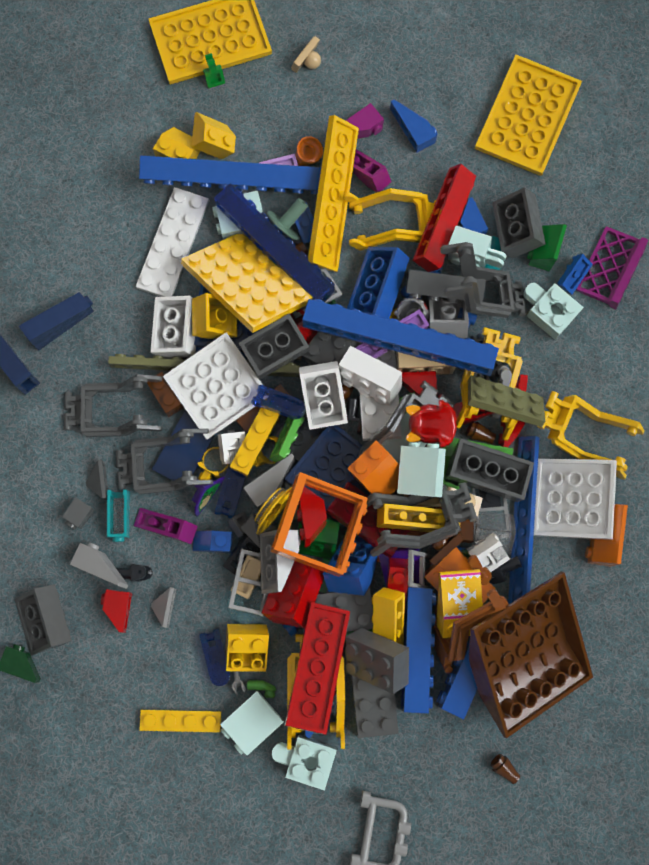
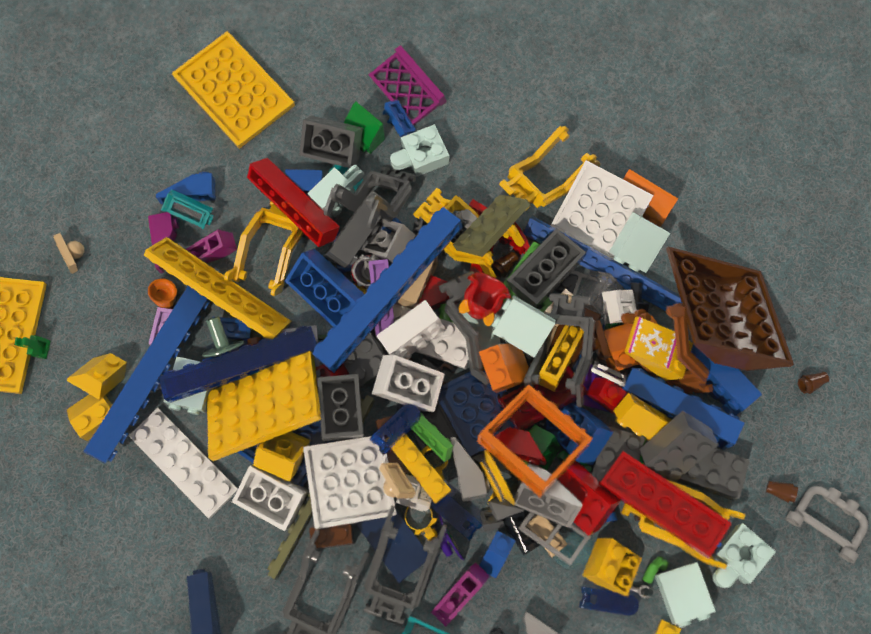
camera: 60 degrees left, 5 degrees down
(232, 425) = (396, 482): none -> tan tile
(386, 778) = (784, 491): none -> reddish brown cone
(393, 133) = (188, 209): none -> teal window
(559, 546) = (638, 243): none -> light aqua brick

